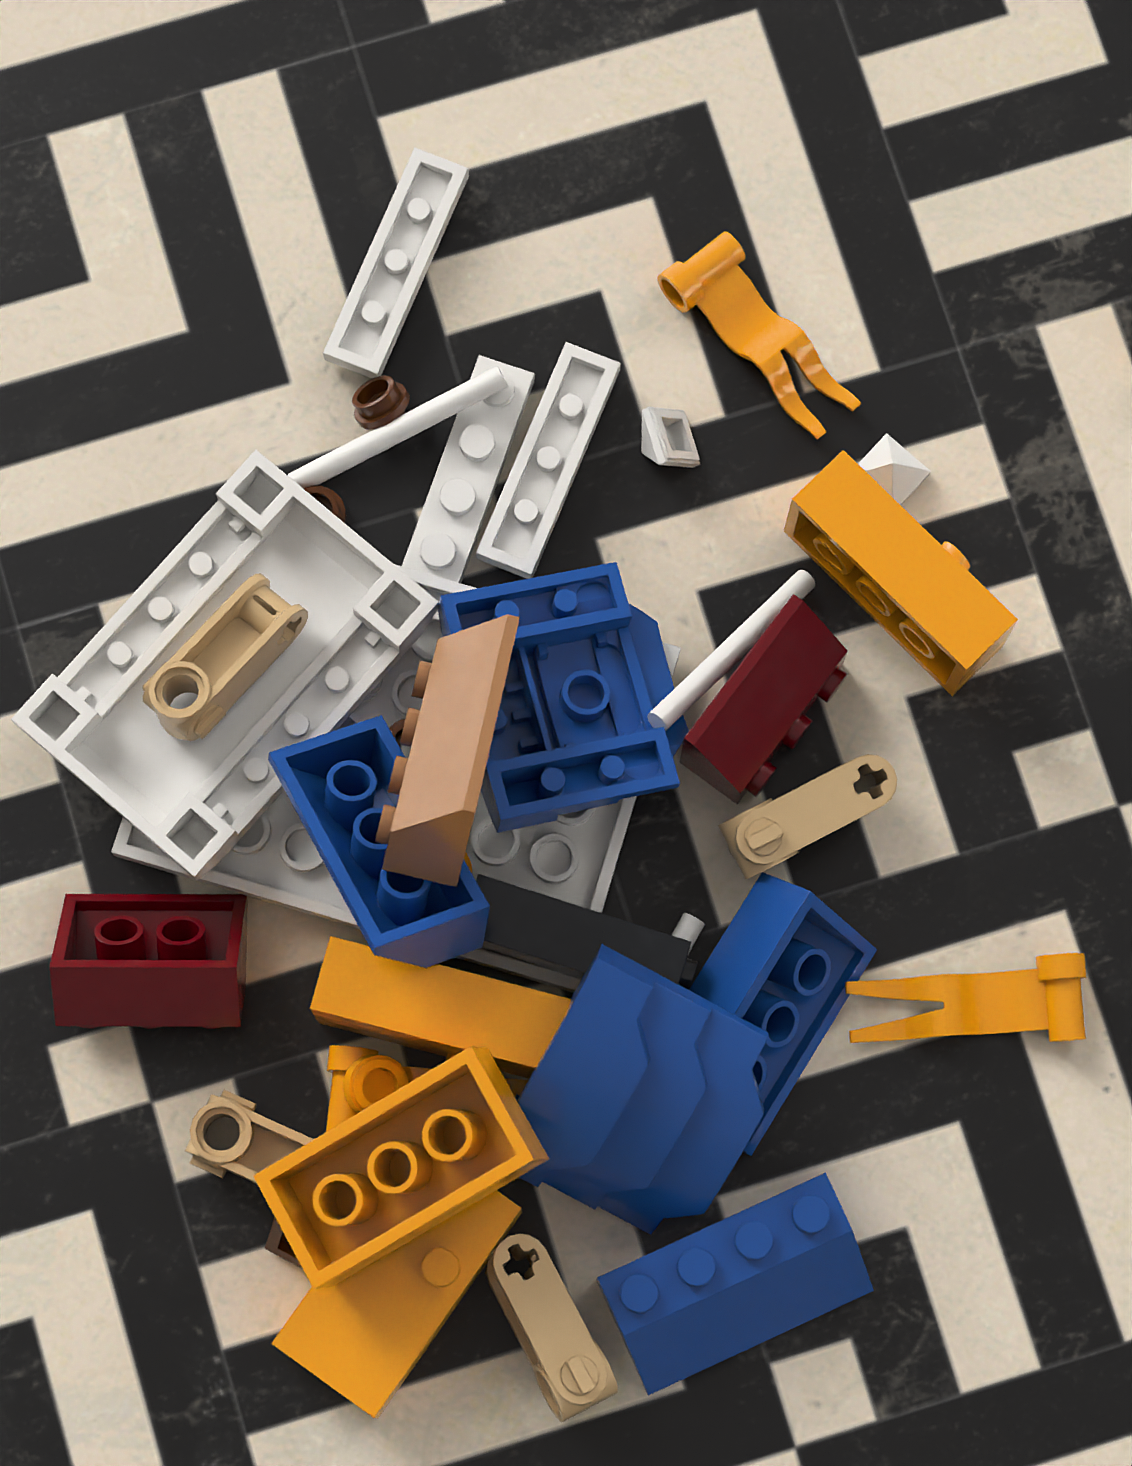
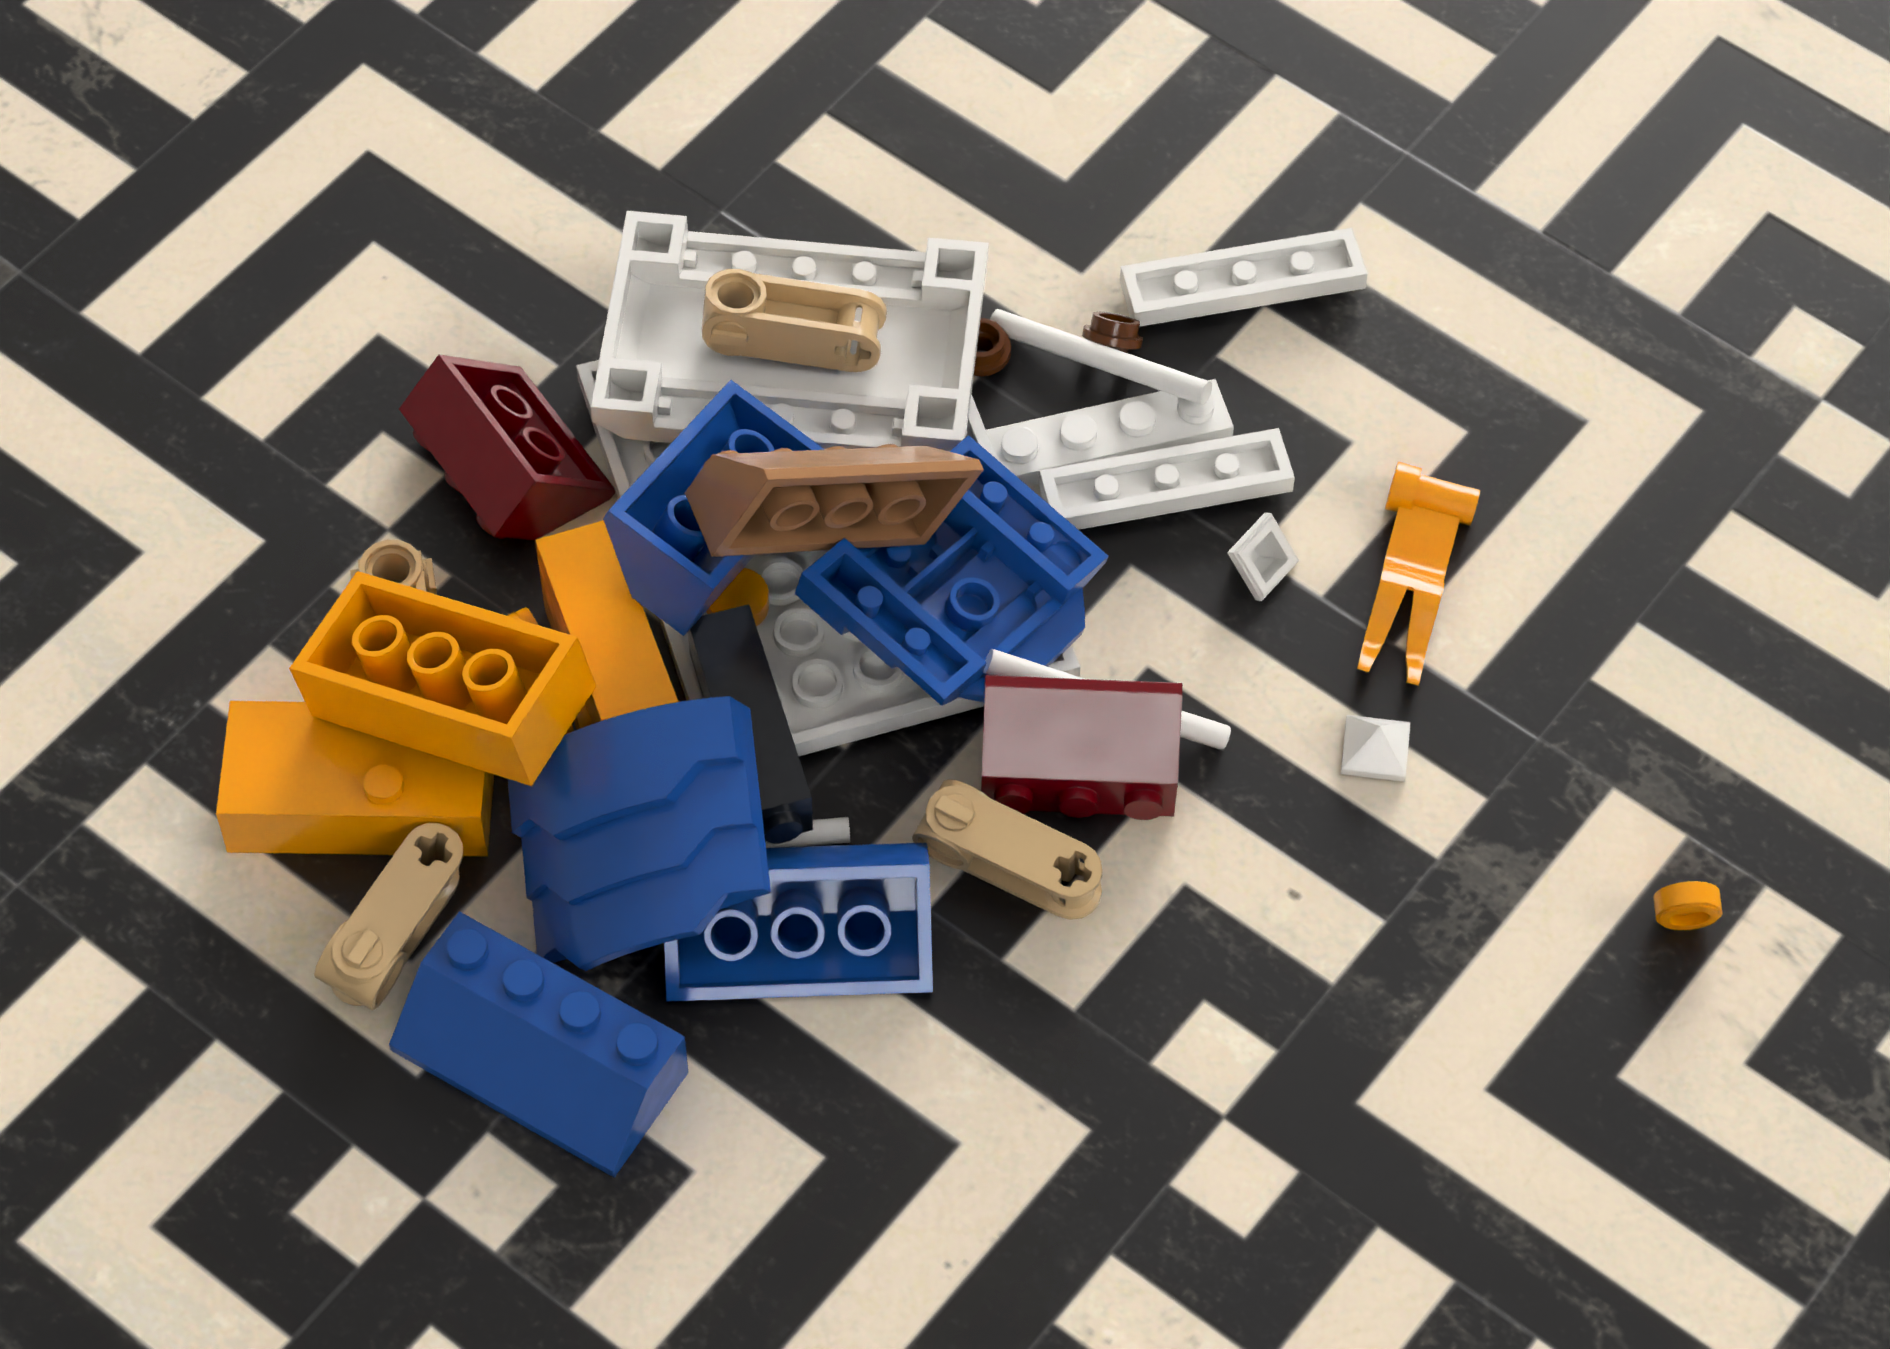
camera: 55 degrees right, 20 degrees down
(899, 572) = (1280, 784): light orange brick -> none
(985, 1002) = (949, 1107): light orange flag -> none

